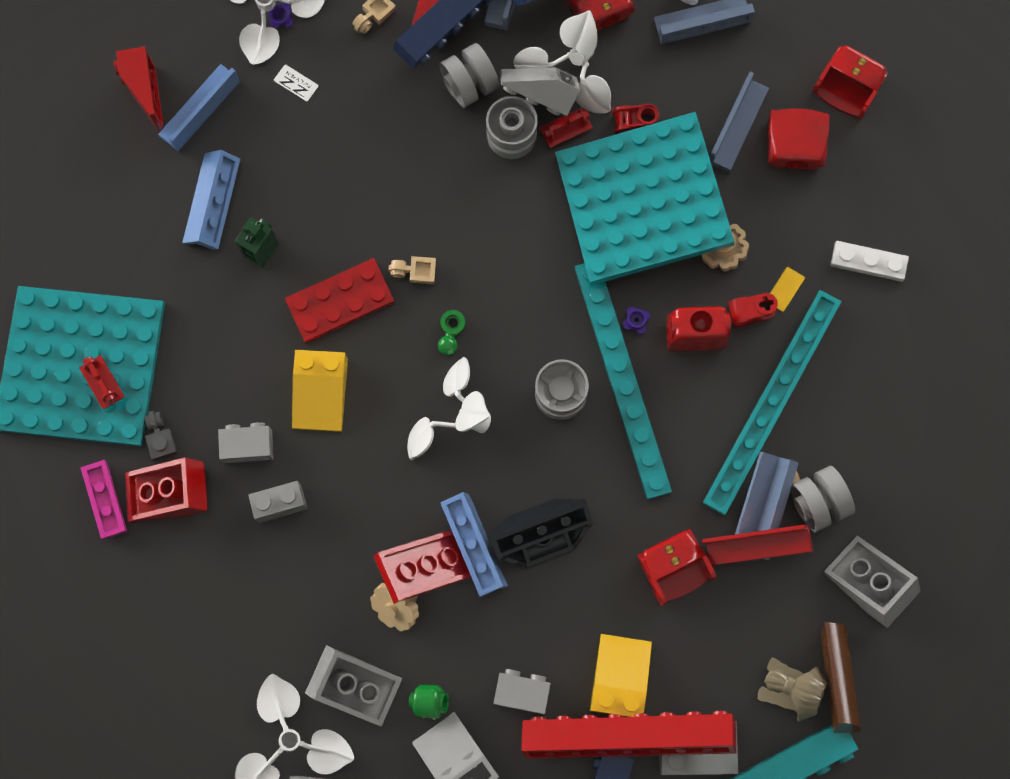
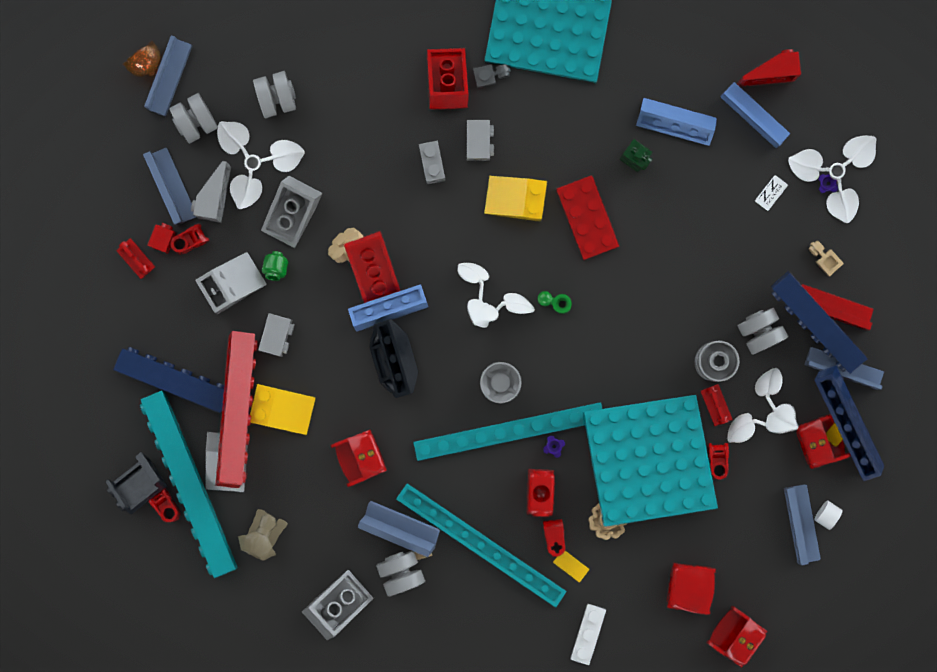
camera: 90 degrees right, 10 degrees up
(101, 381) = (534, 33): red hinge -> none
(104, 499) = (444, 32): dark pink plate -> none
(192, 712) = (279, 93): none -> light grey wheel
(421, 269) = (606, 282): tan plate -> none
(543, 86) = (747, 387): light grey slope -> none
(738, 124) = (708, 543): sand blue panel -> none
(759, 545) = (368, 521): red panel -> none
(840, 678) = (266, 571): reddish brown brick -> none

